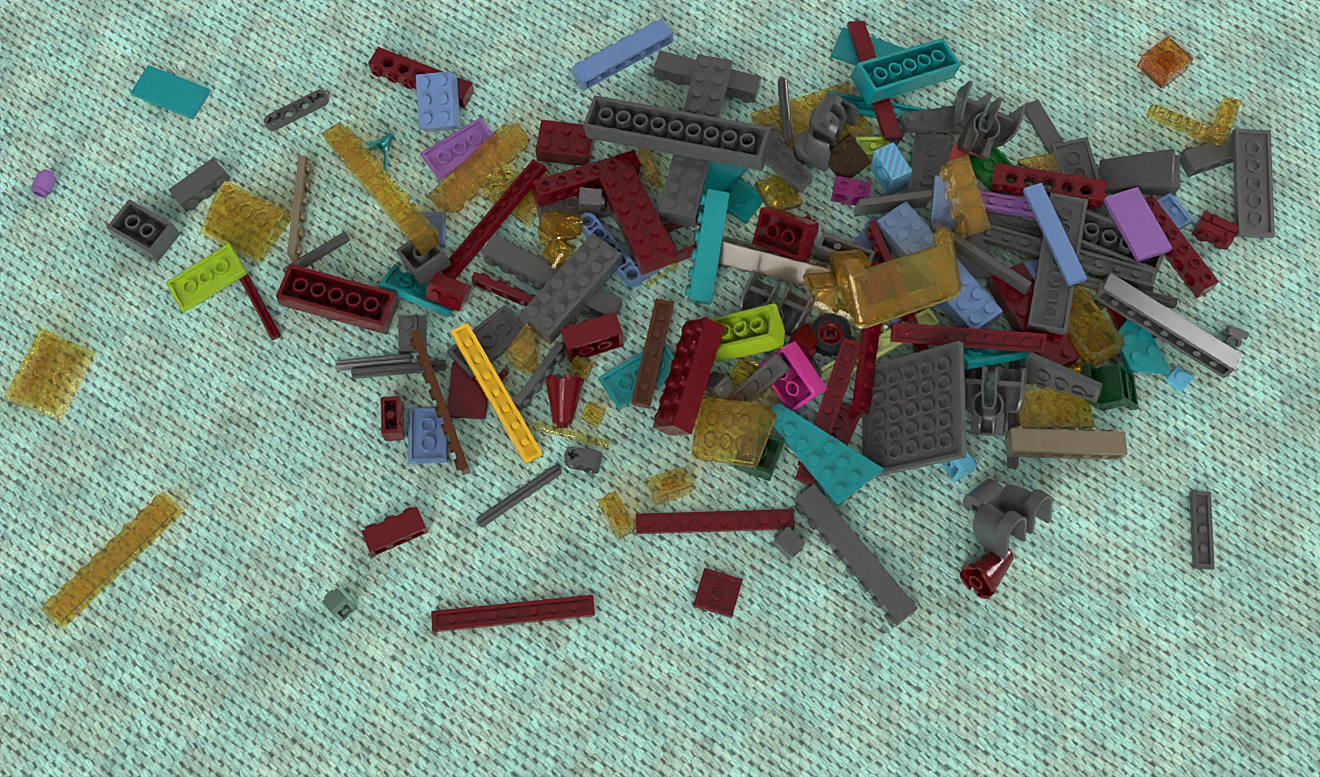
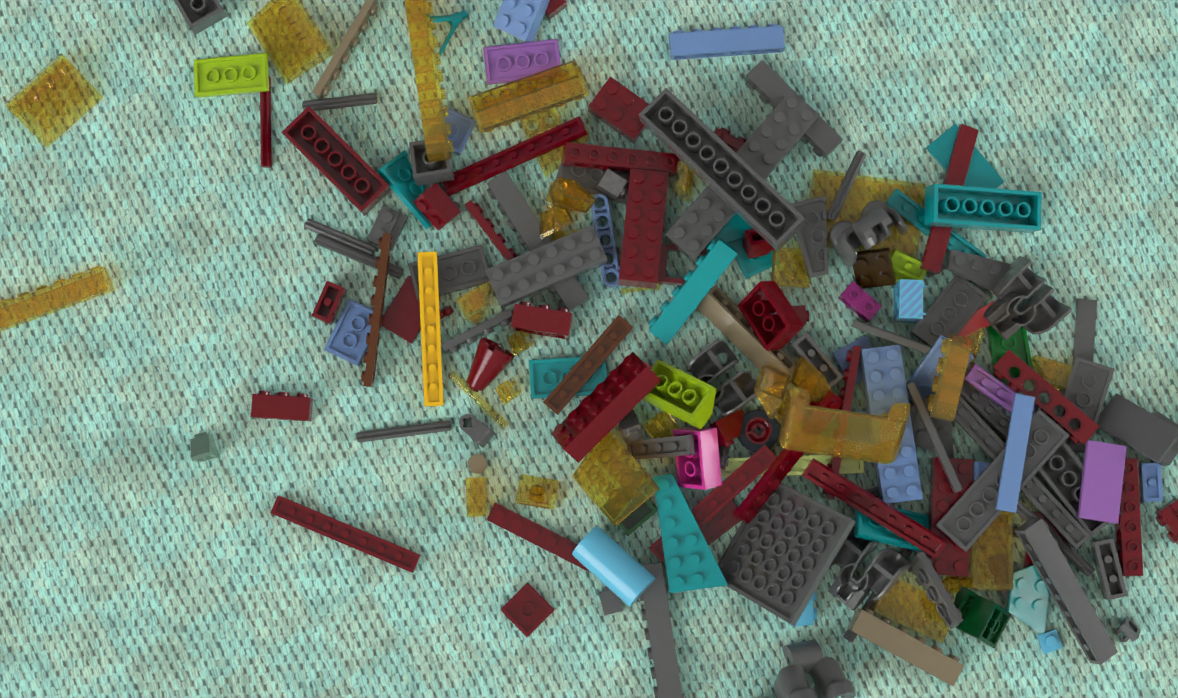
camera: 30 degrees right, 15 degrees up
(600, 488) = (477, 463): none -> dark tan tile
(741, 183) = (755, 244): none -> dark red slope
(773, 508) = (613, 566): none -> medium azure brick
(1188, 292) = (1108, 568): none -> dark grey brick

